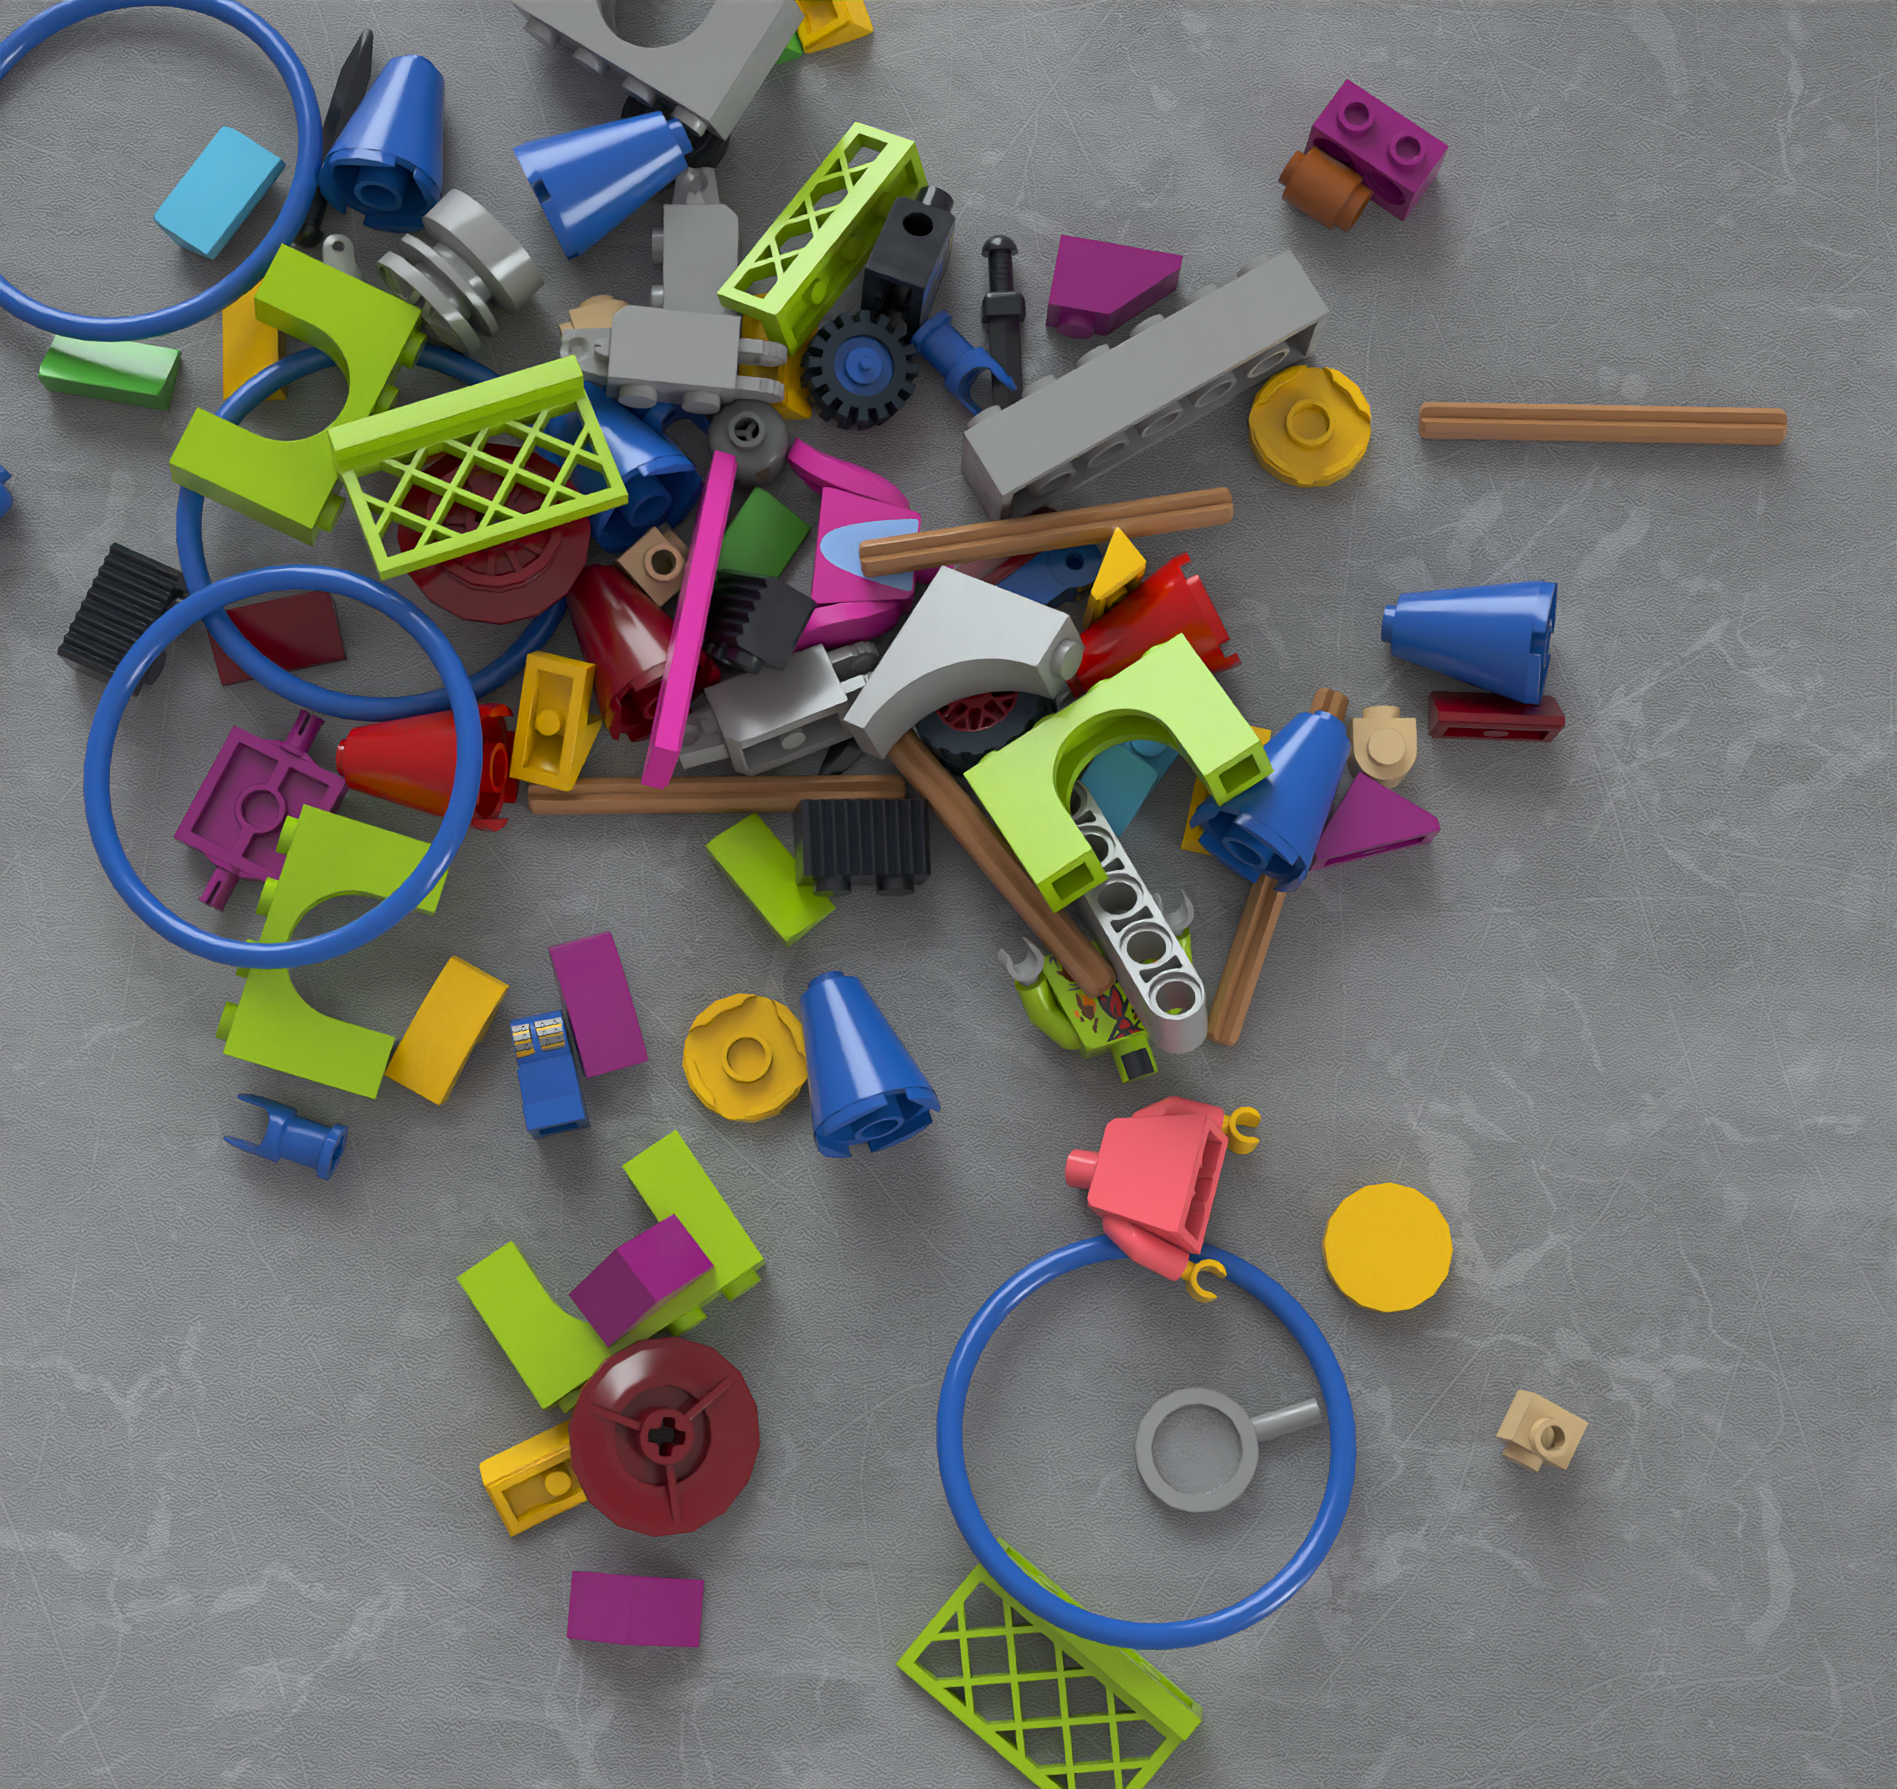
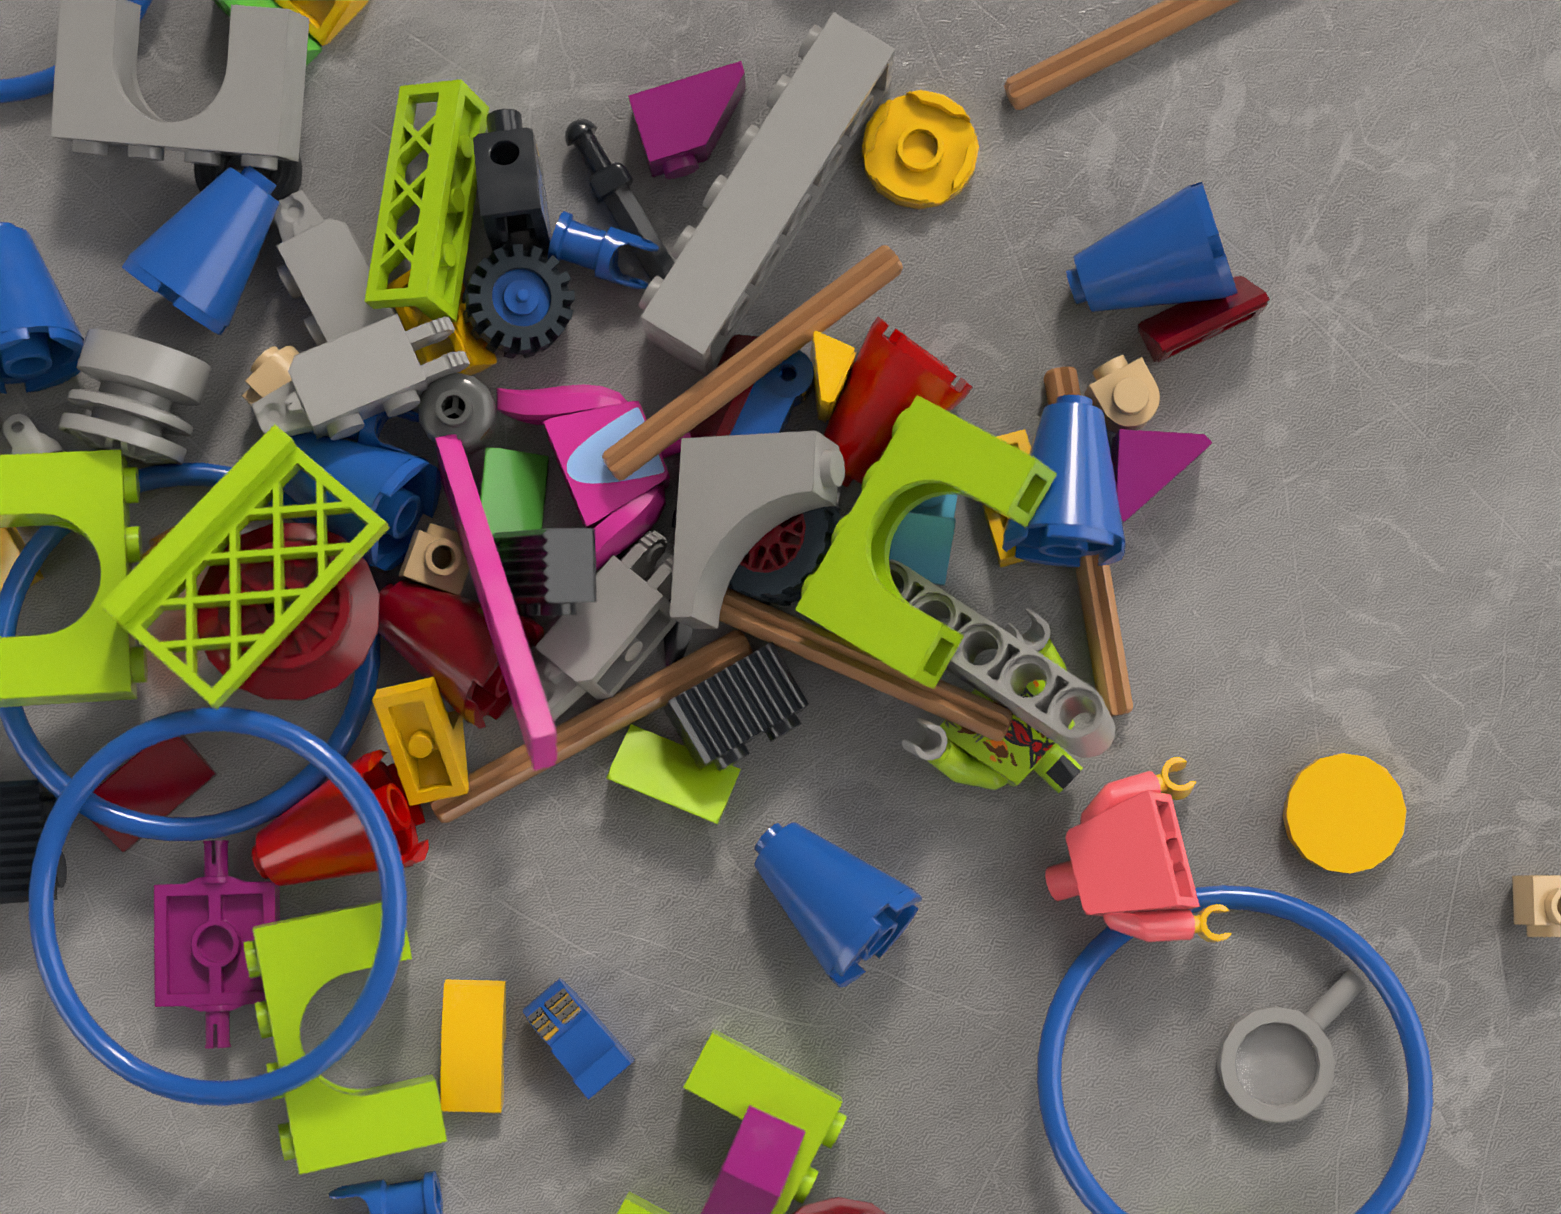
camera: 20 degrees left, 5 degrees up
(597, 1004) = (587, 957): magenta slope -> none
(745, 1058) = (733, 935): yellow tile -> none

